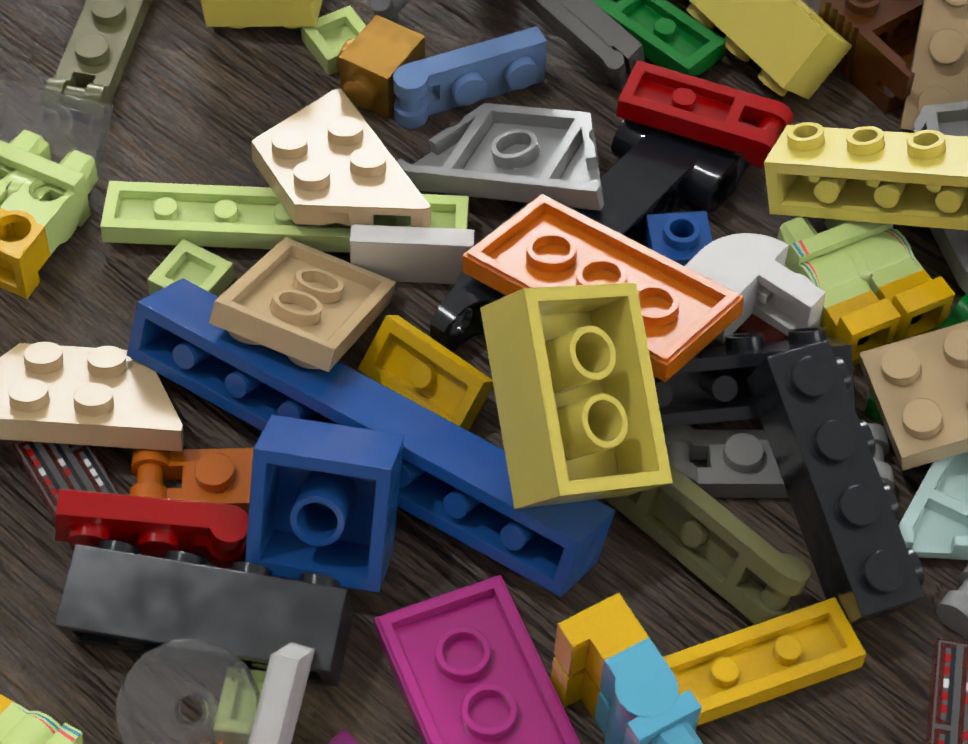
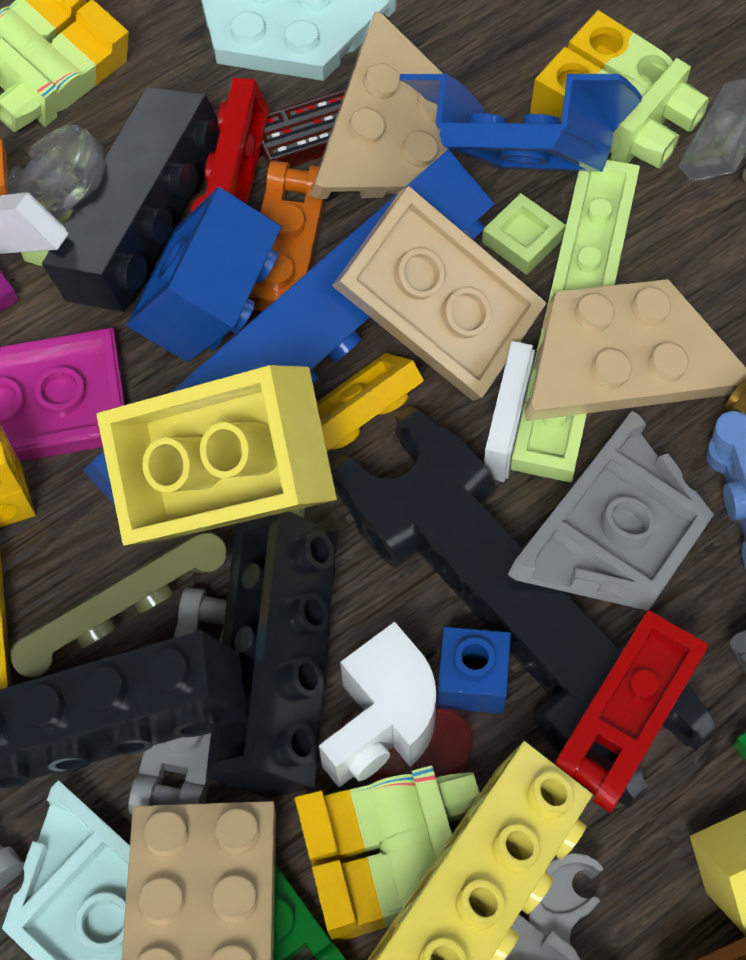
camera: 105 degrees right, 10 degrees up
(123, 231) = (582, 142): none -> blue piece
(561, 247) = (387, 544): orange tile -> none

